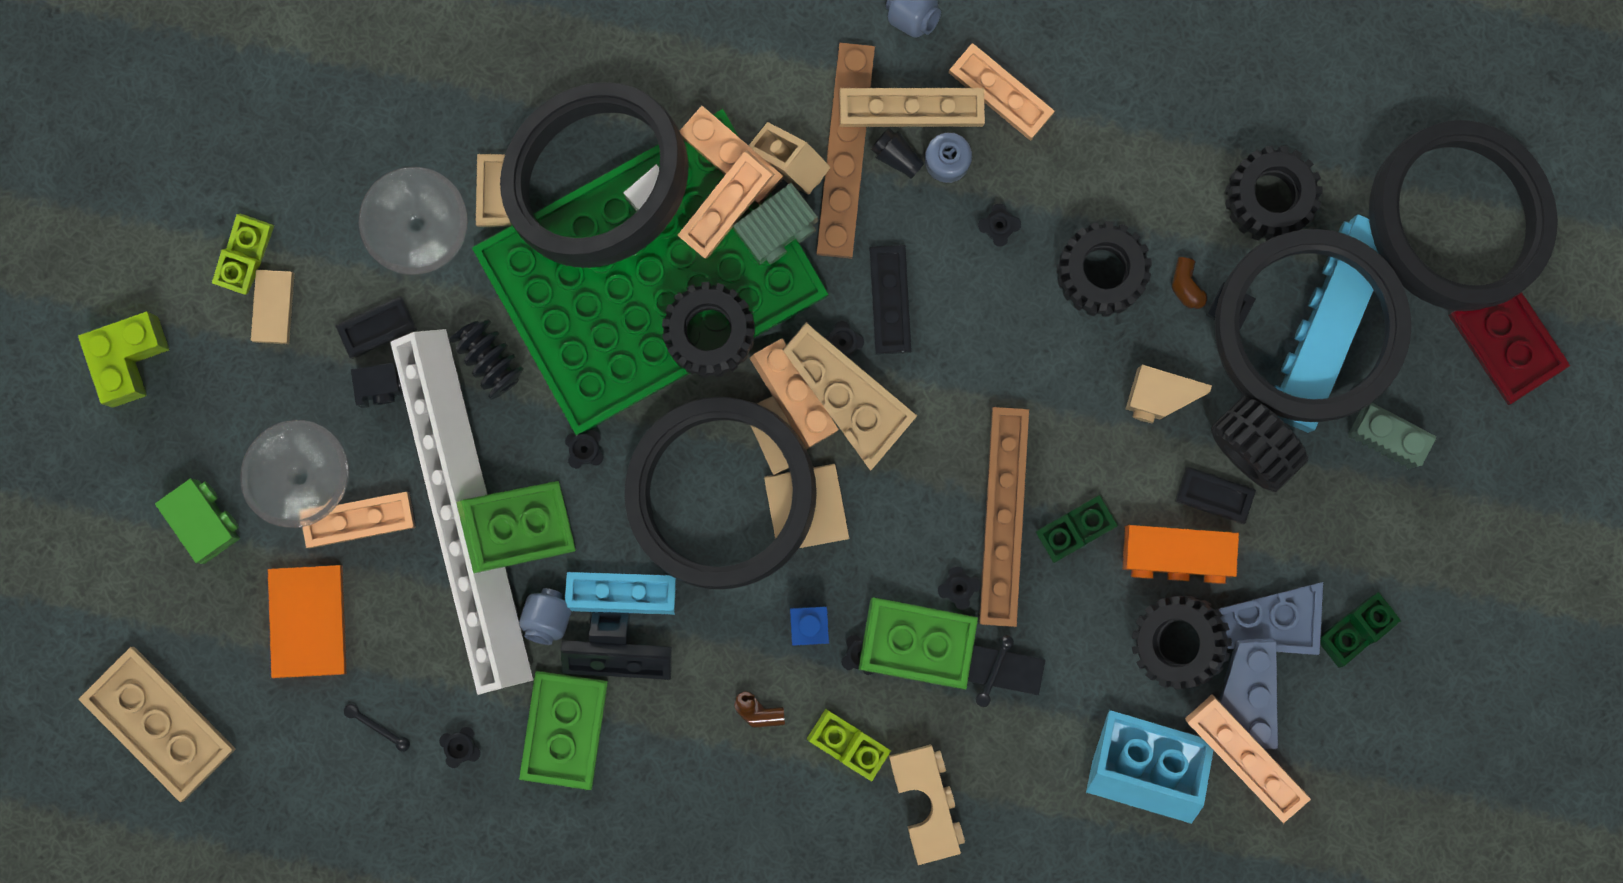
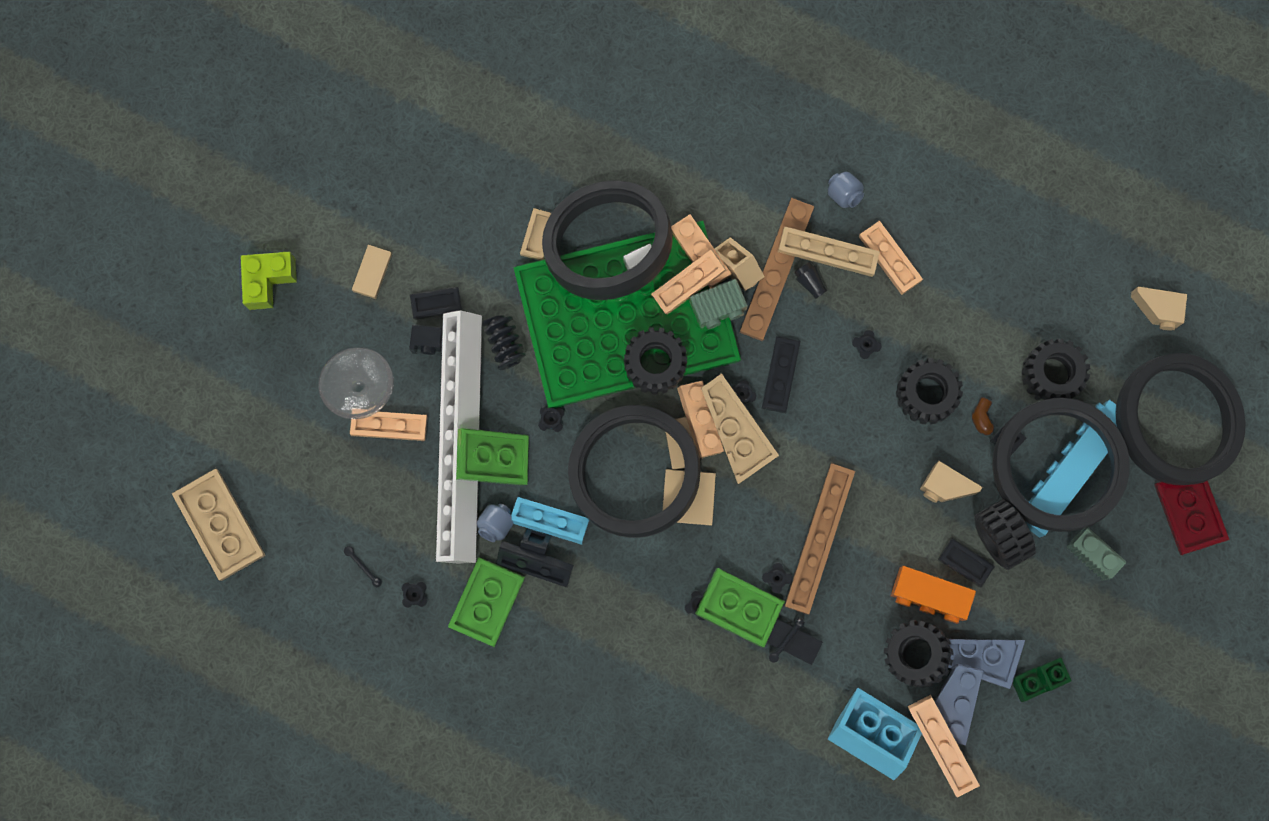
camera: 15 degrees right, 5 degrees down
(198, 520) = (284, 398): bright green brick -> none
(243, 254) = (362, 232): lime slope -> none
(307, 621) = (336, 483): orange tile -> none
(398, 201) = (479, 223): clear dish -> none
(755, 714) = (617, 625): reddish brown arm -> none
(809, 626) = (670, 576): blue brick -> none
(848, 745) = (675, 664): lime slope -> none
(937, 835) = (719, 740): tan arch -> none
(948, 169) = (843, 298): sand blue head -> none
(1077, 528) = (867, 559): dark green slope -> none
(1398, 62) = (1161, 306): none -> tan slope

